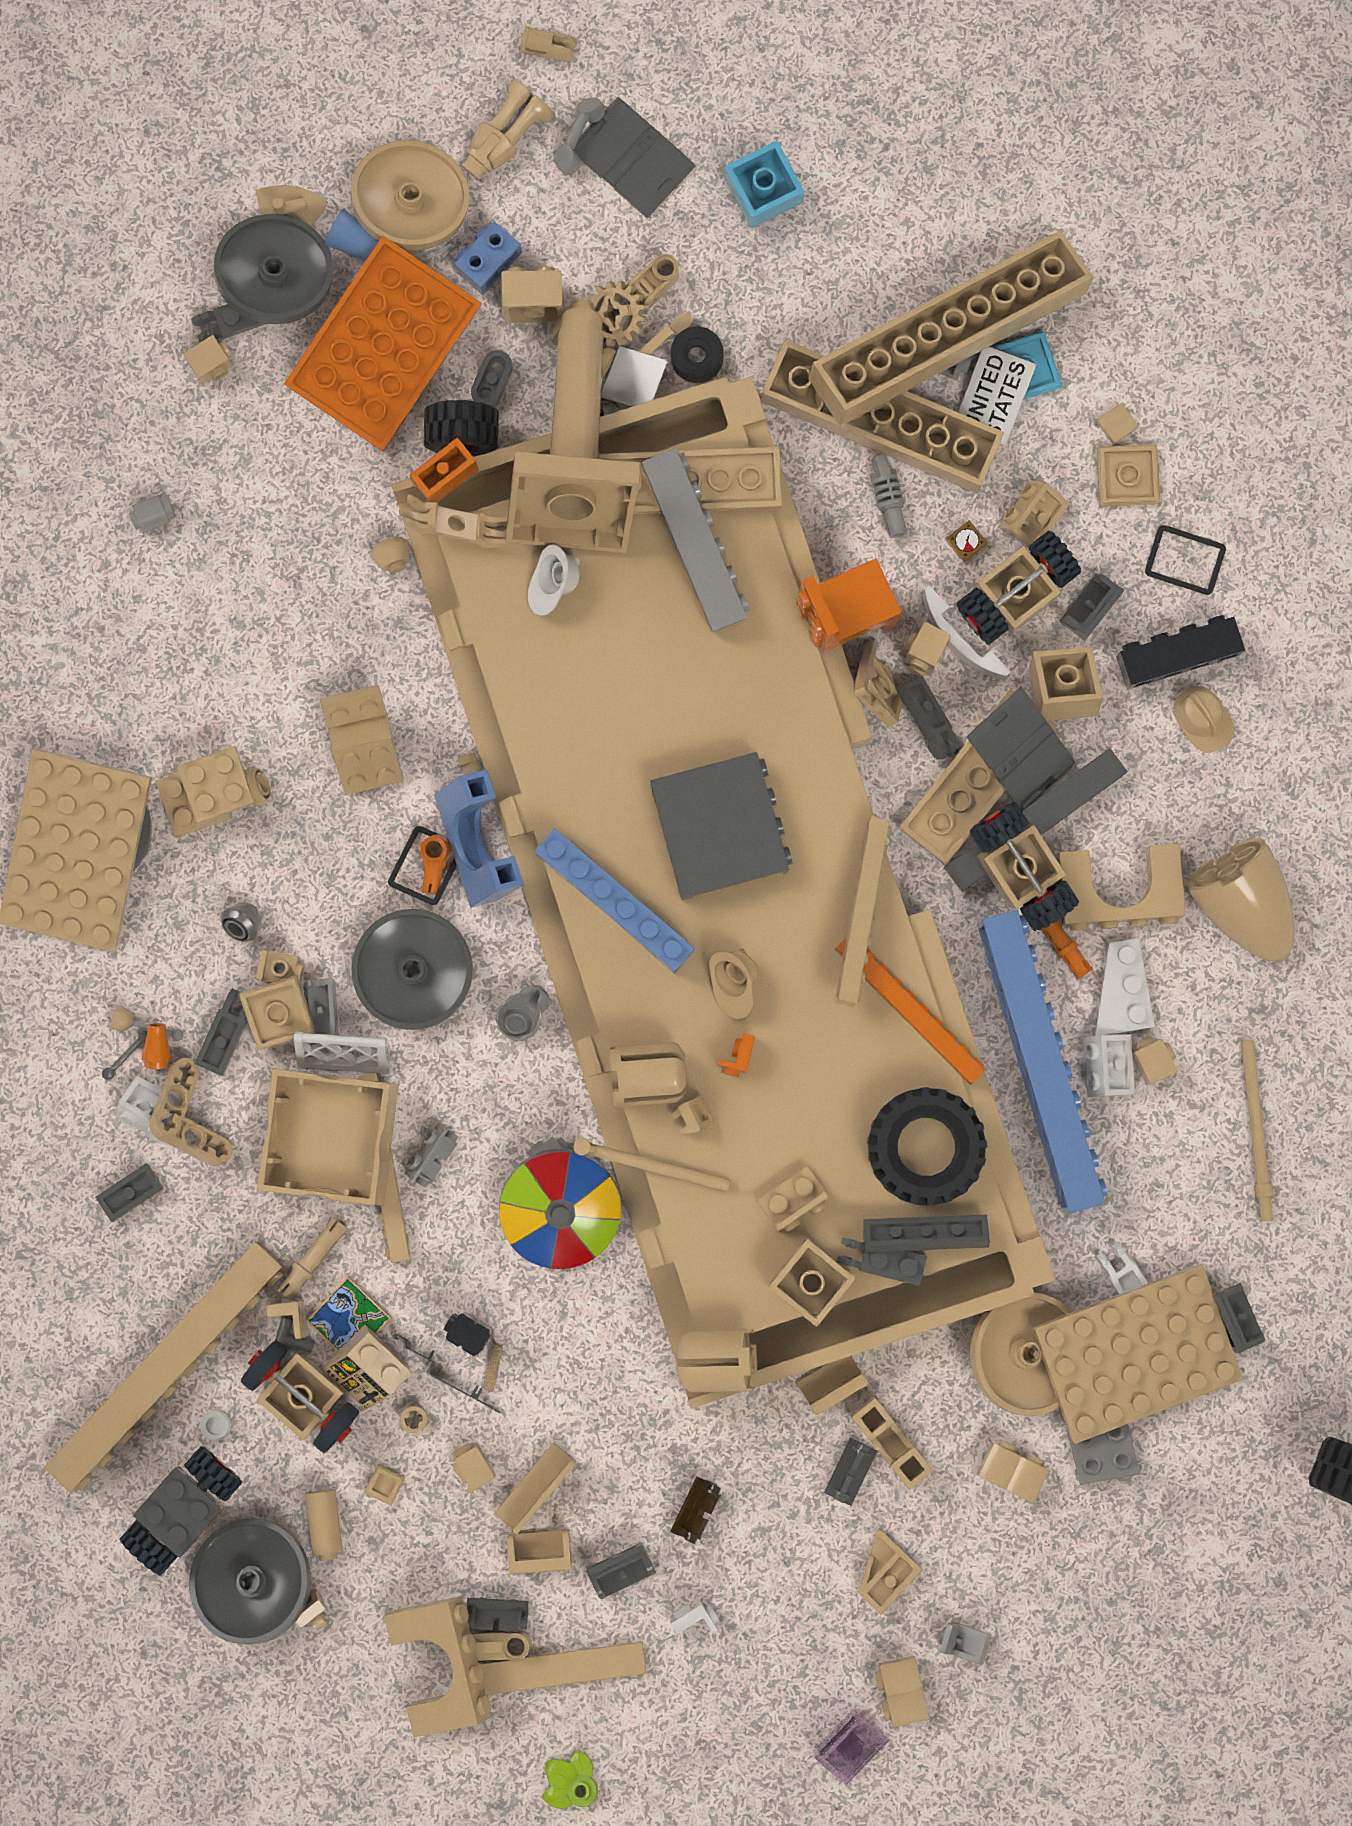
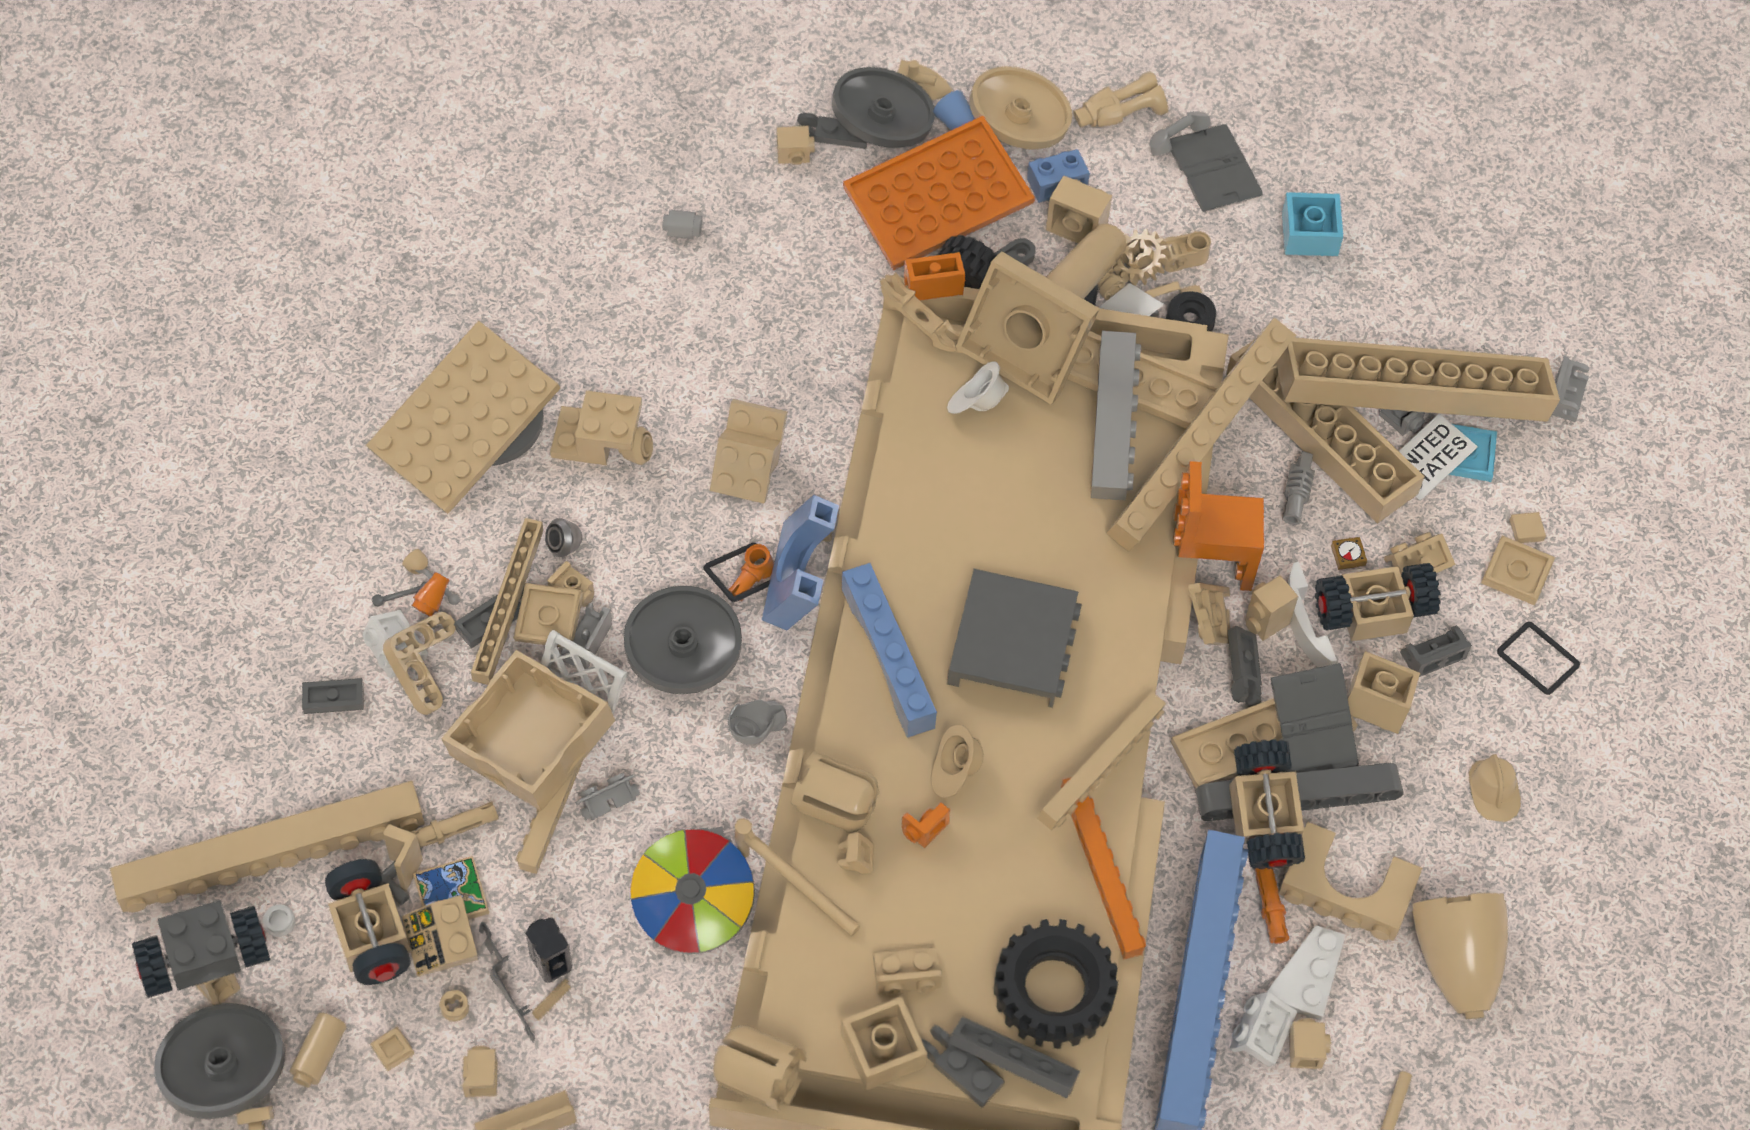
camera: 25 degrees right, 25 degrees down
(232, 1019) = (507, 601): none -> tan piece
(391, 554) = (856, 336): tan cone -> none
(548, 44) = (1188, 64): tan hinge -> none
(787, 517) = (1201, 434): none -> tan brick
(1091, 244) = (1570, 388): none -> light grey hinge
(1180, 652) = (1498, 720): black brick -> none

